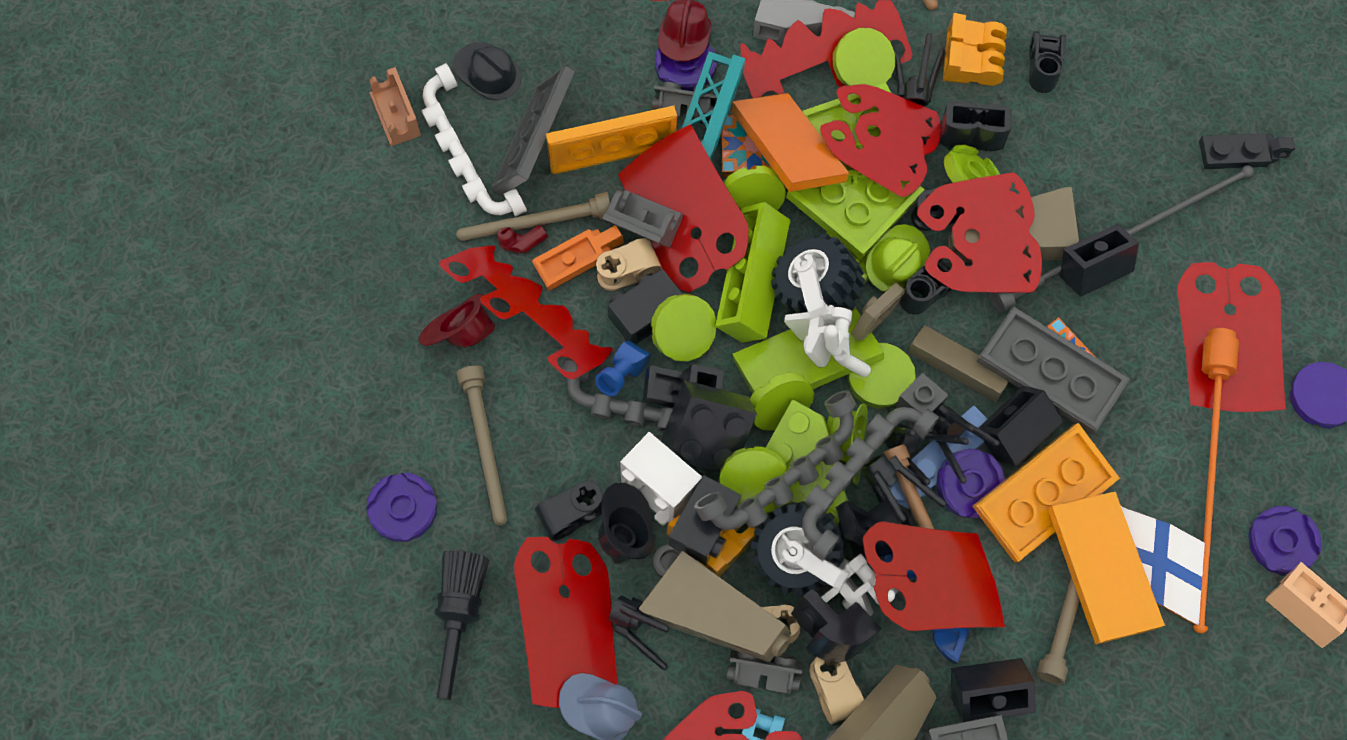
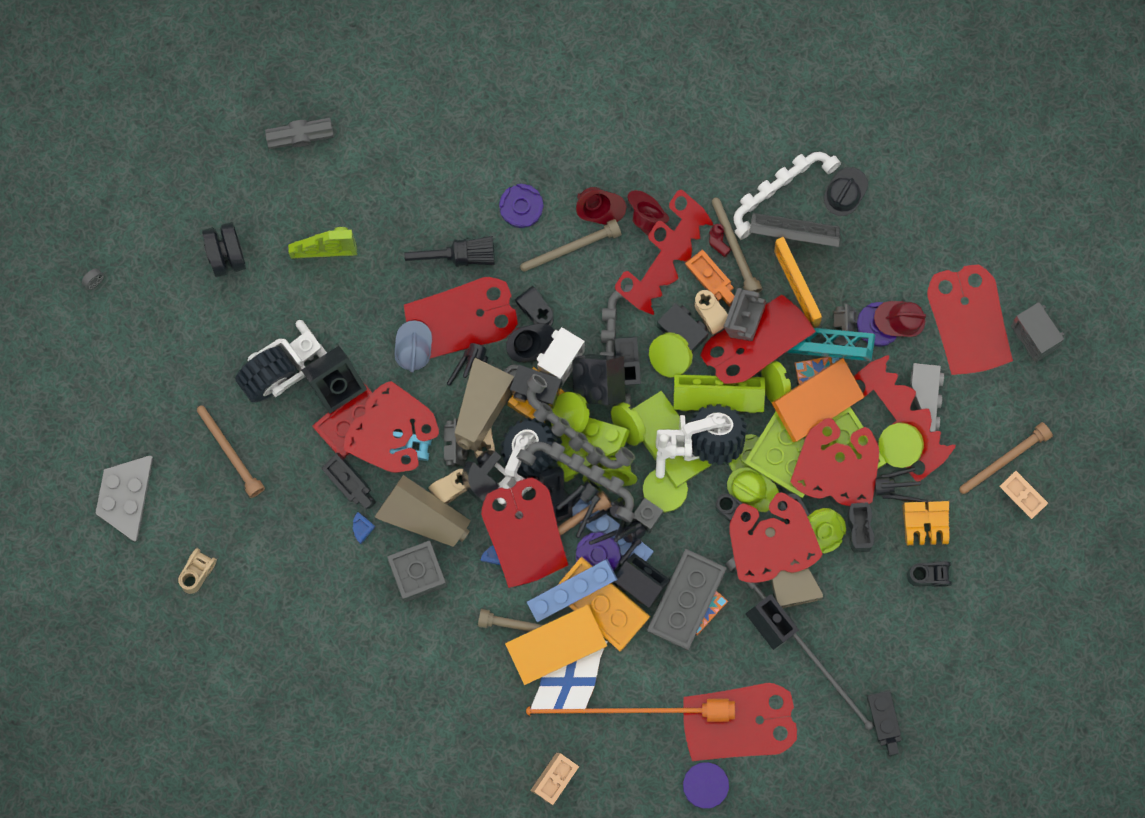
camera: 85 degrees right, 10 degrees up
(394, 108) = (800, 137): nougat hinge -> none
(431, 388) = (600, 206): none -> dark red piece
(628, 360) = (643, 325): blue leg -> none
(877, 311) = (704, 477): dark tan plate -> none
(957, 363) = (684, 537): dark tan slope -> none
(993, 690) = (463, 580): black brick -> none
(1026, 528) = (572, 590): none -> medium blue plate
(1275, 548) = (597, 762): dark purple tile -> none

